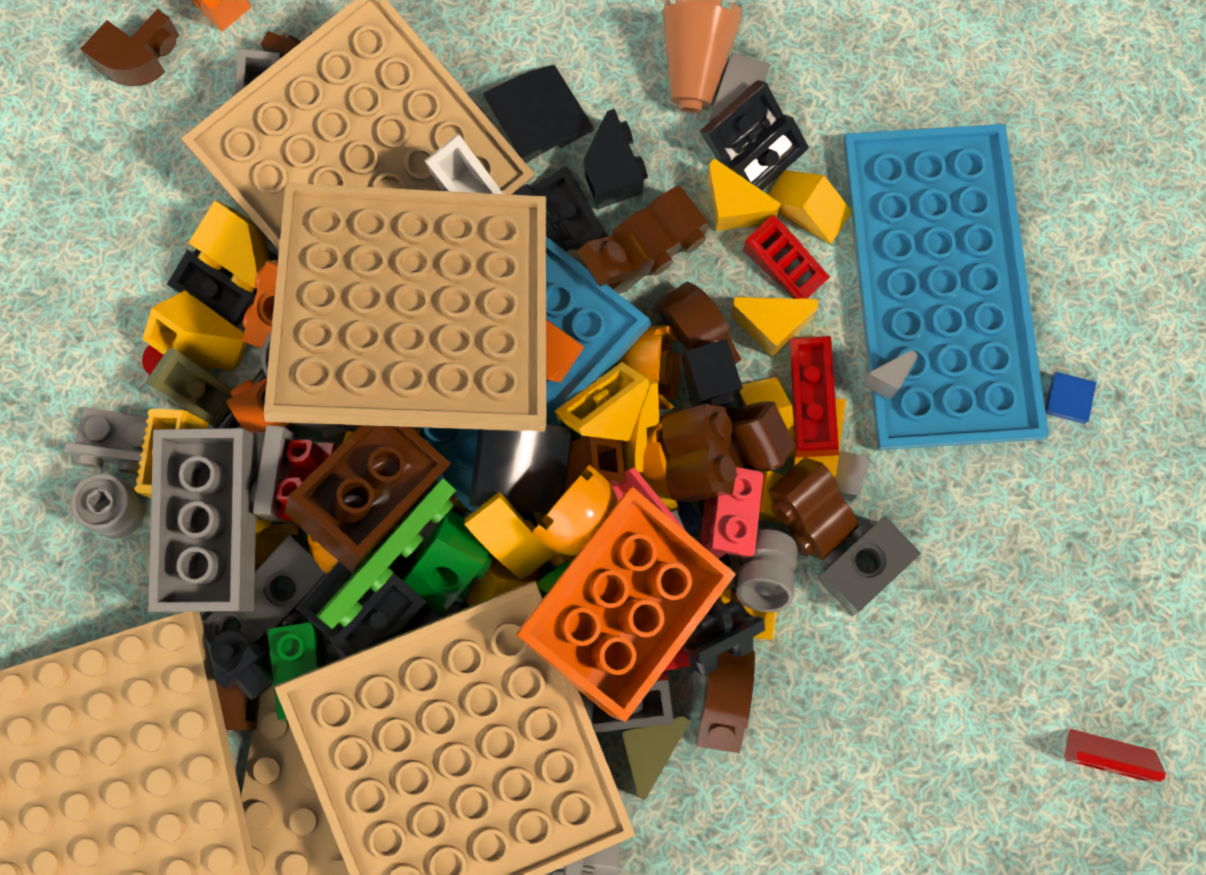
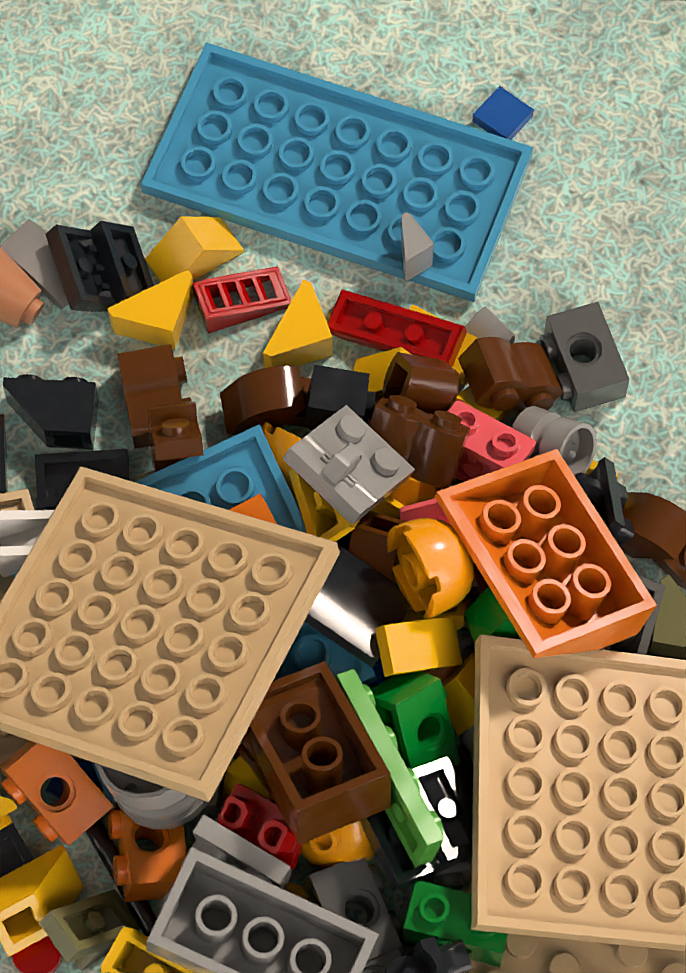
camera: 65 degrees left, 10 degrees down
(639, 405) = (348, 464): none -> light grey hinge

